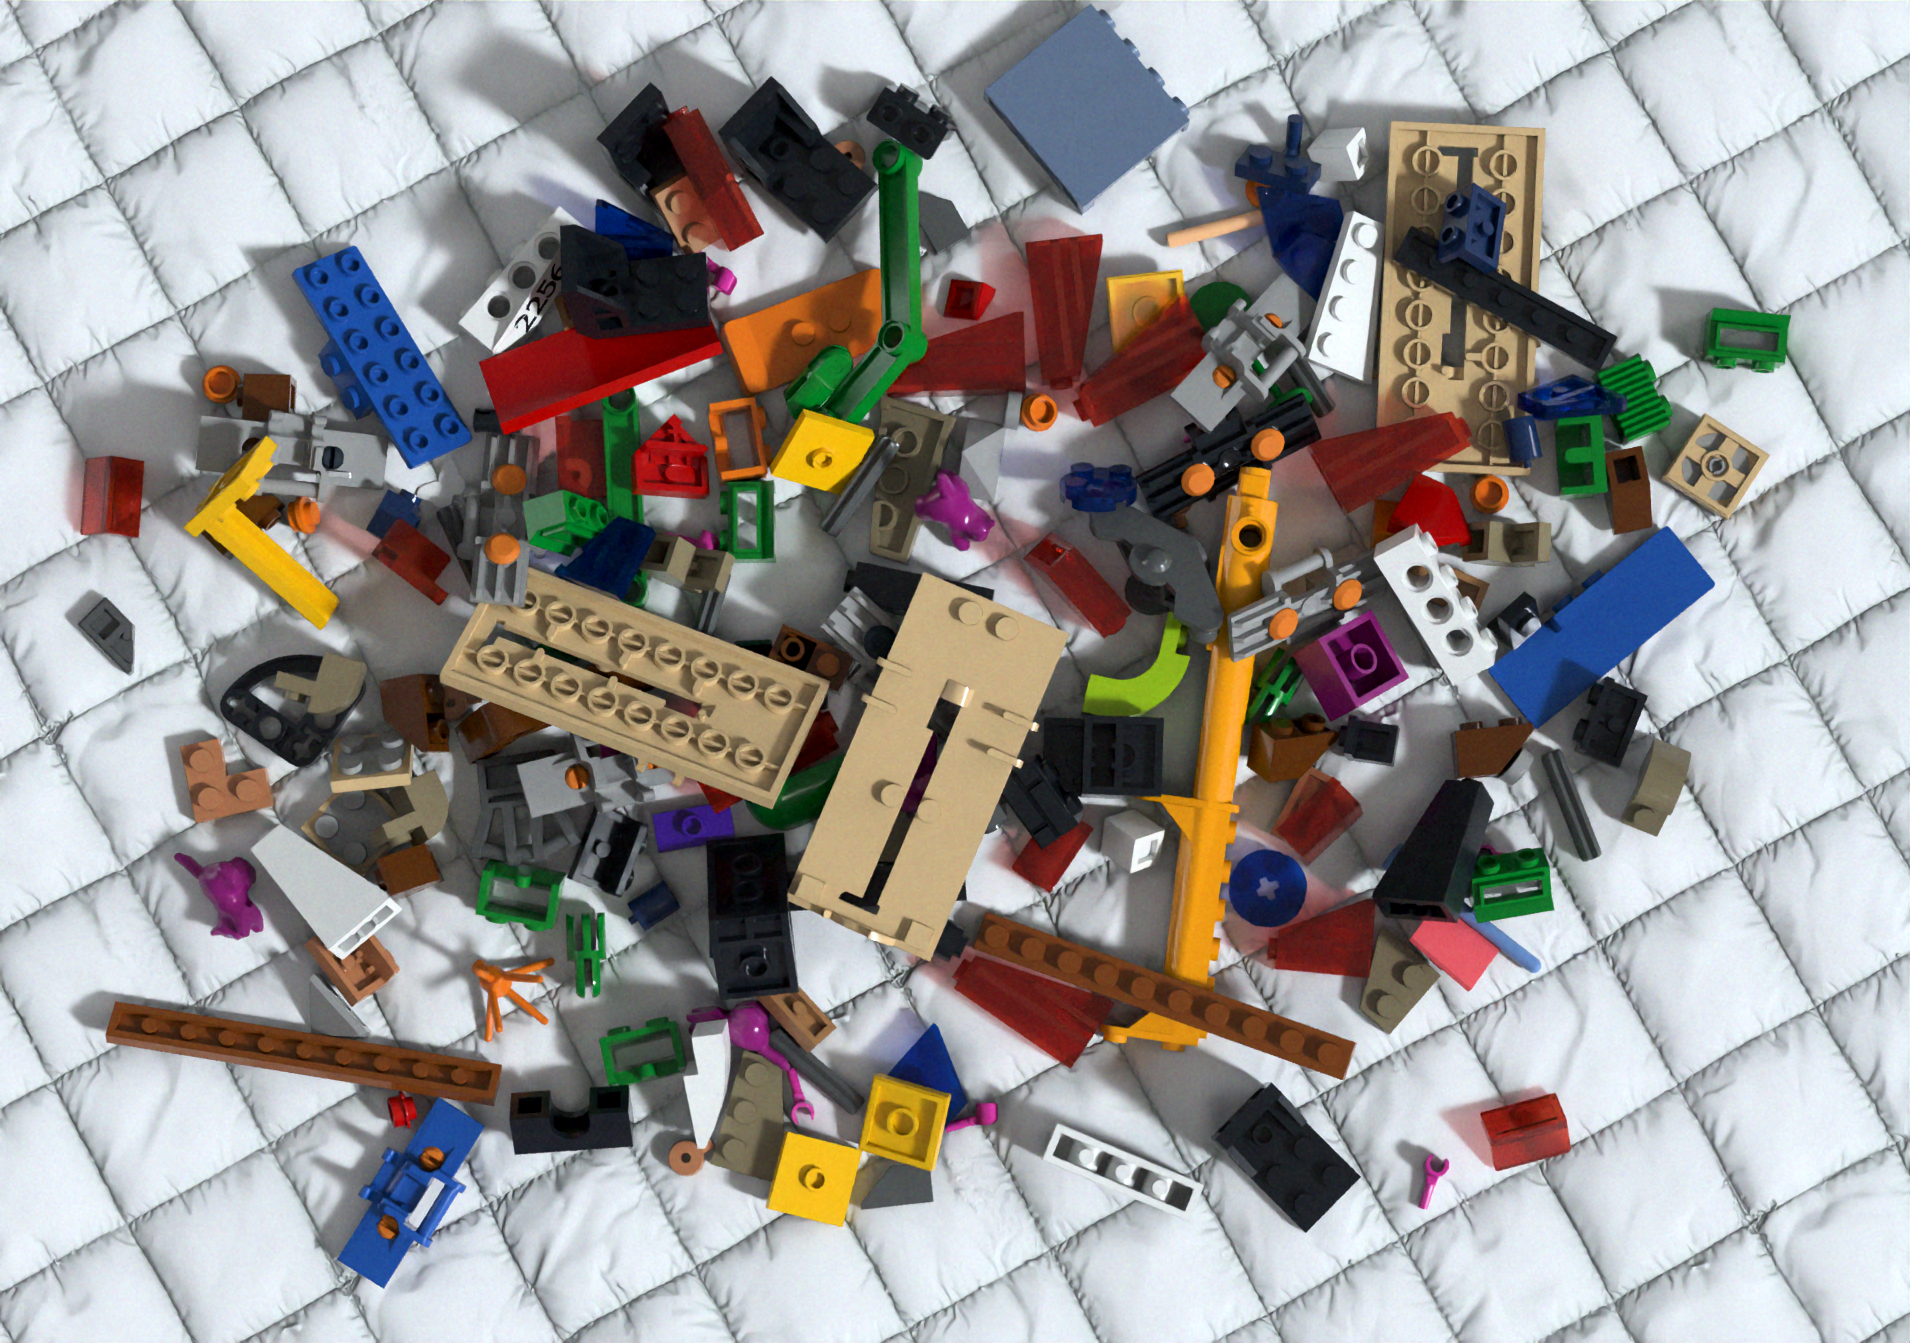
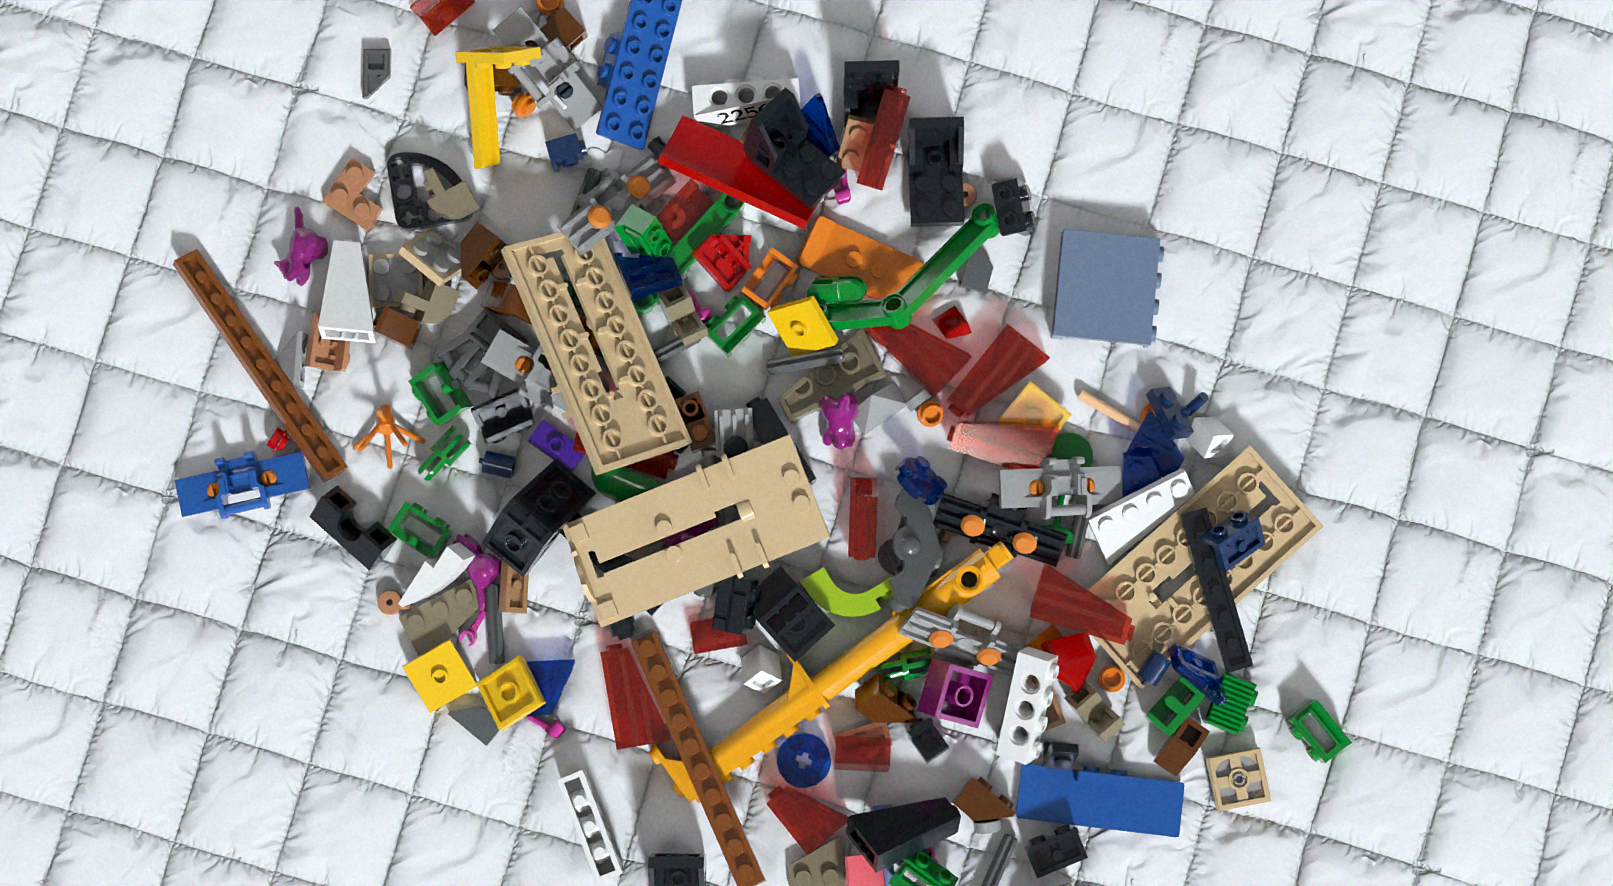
camera: 45 degrees right, 0 degrees up
(413, 559) = (553, 179): clear red panel -> none

